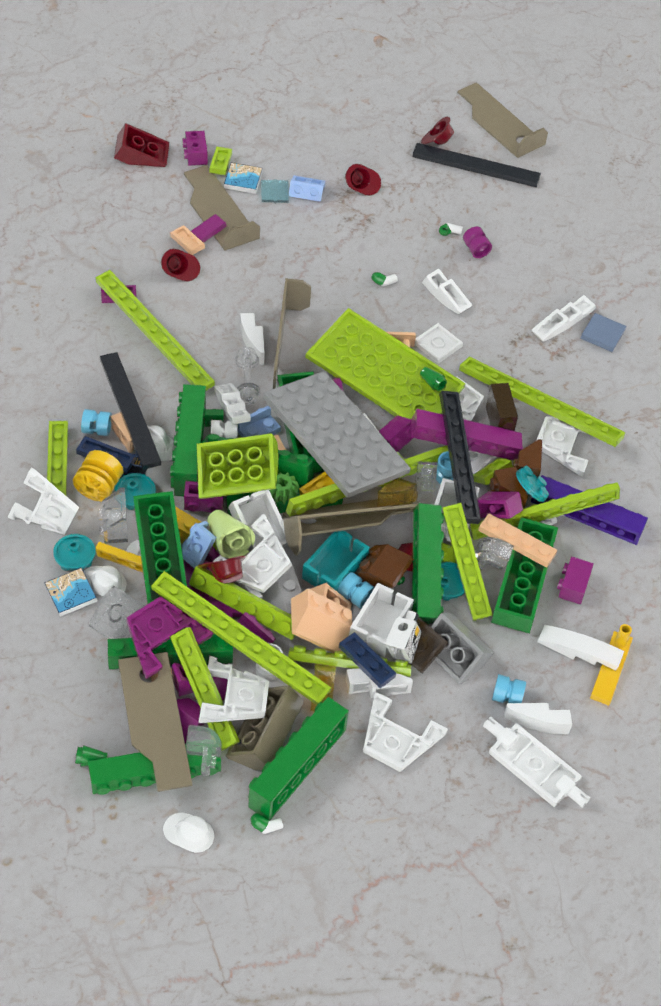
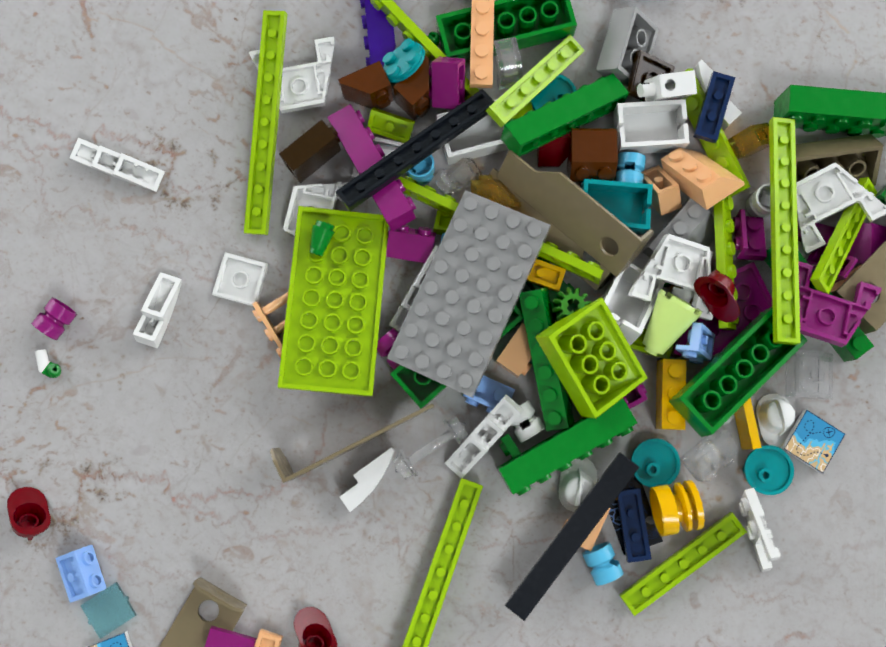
camera: 115 degrees left, 30 degrees up
(383, 280) = (181, 391): arm -> none
(393, 743) = (764, 48): white wing -> none
(603, 332) = (109, 115): sand blue tile -> none

